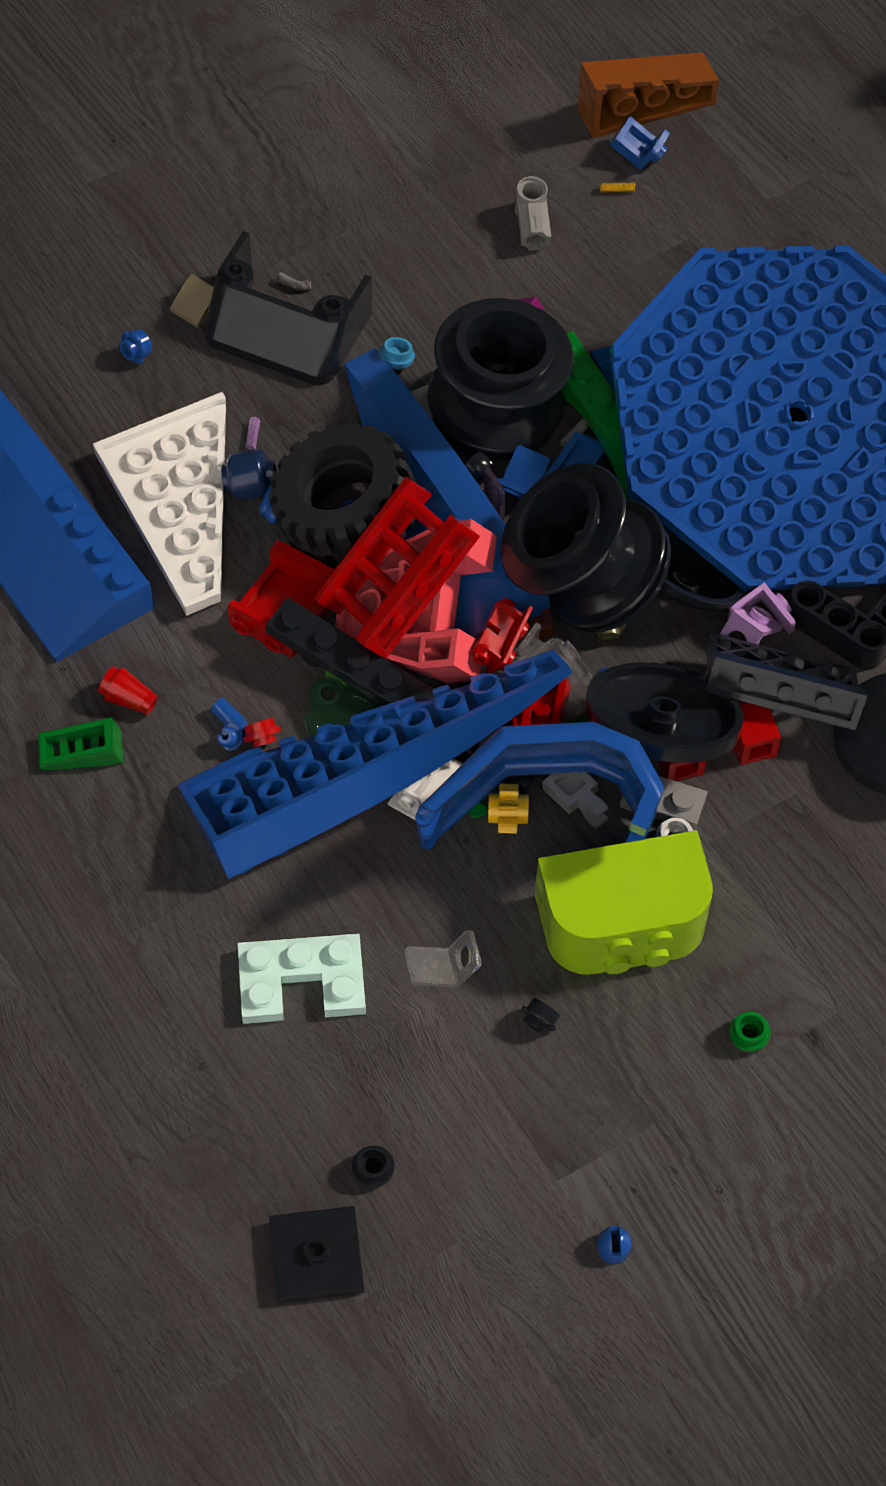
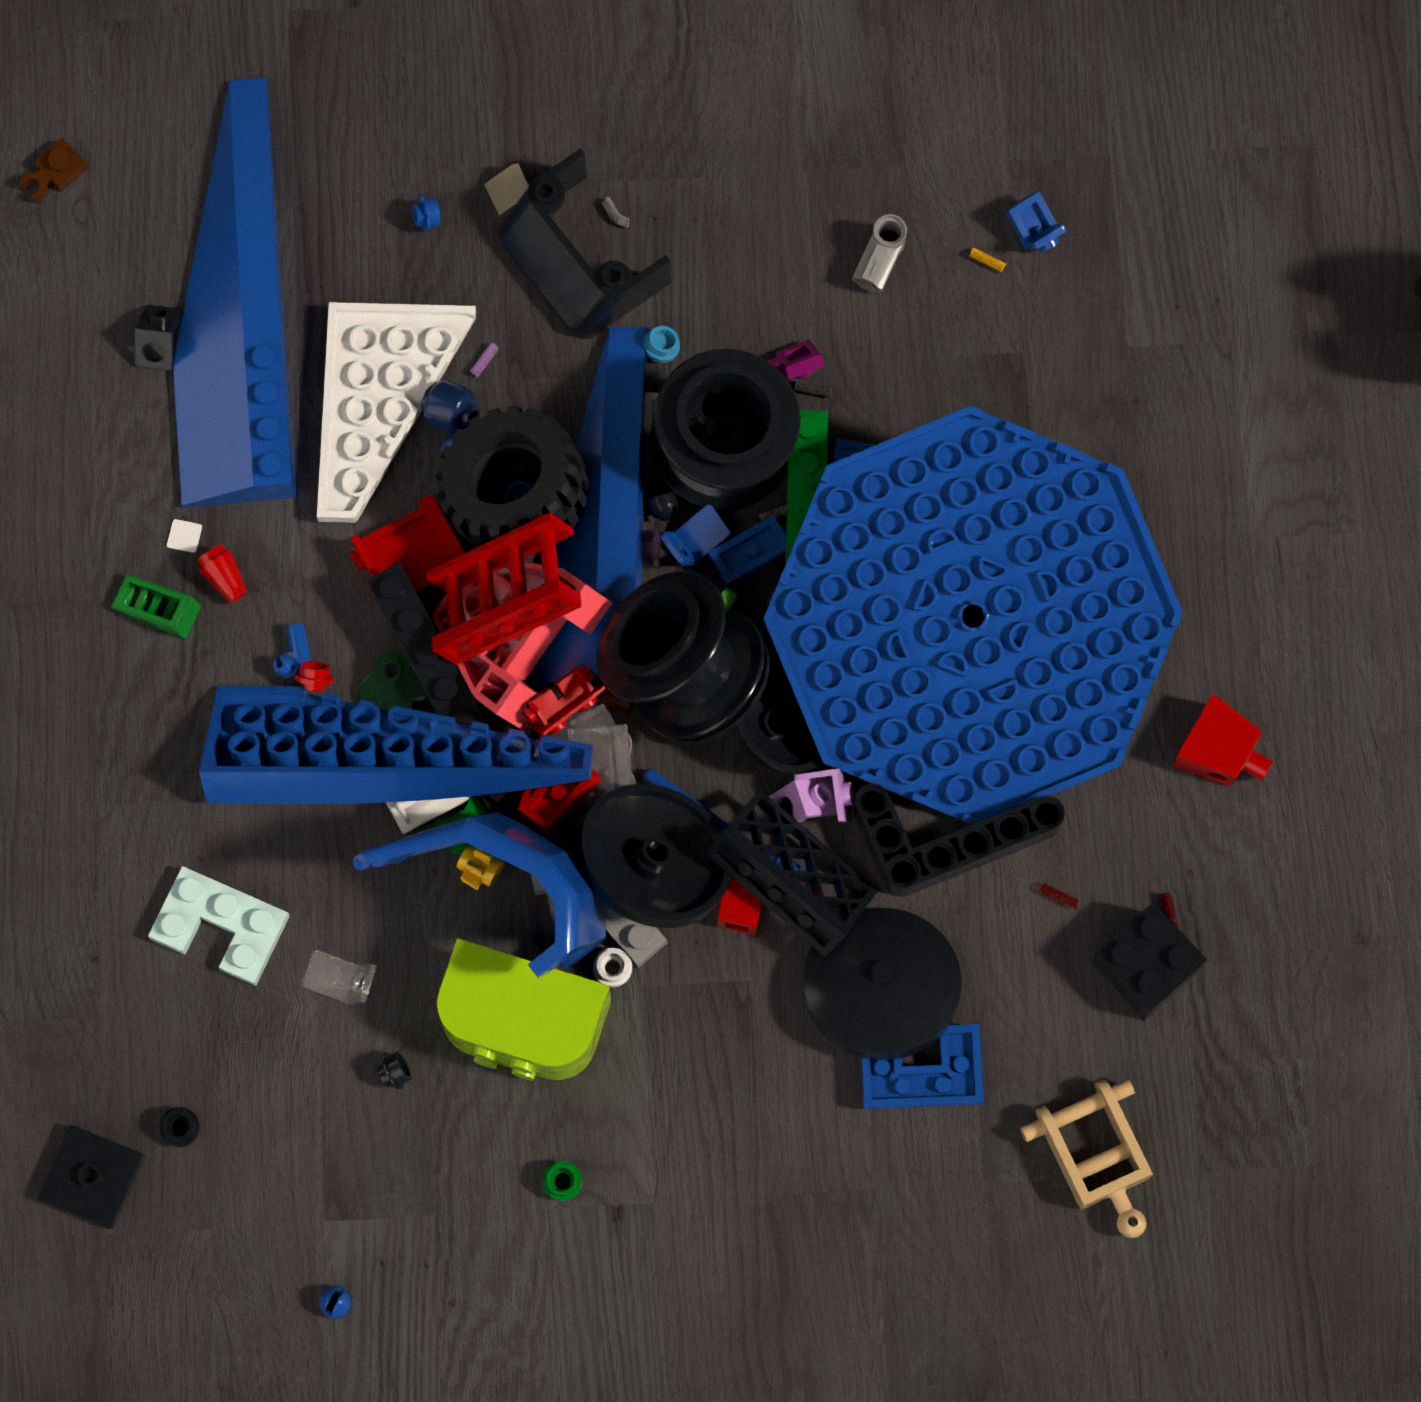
camera: 30 degrees right, 15 degrees up
(71, 683) = (184, 535): none -> white sticker
(643, 89) = (1076, 166): dark orange wedge -> none

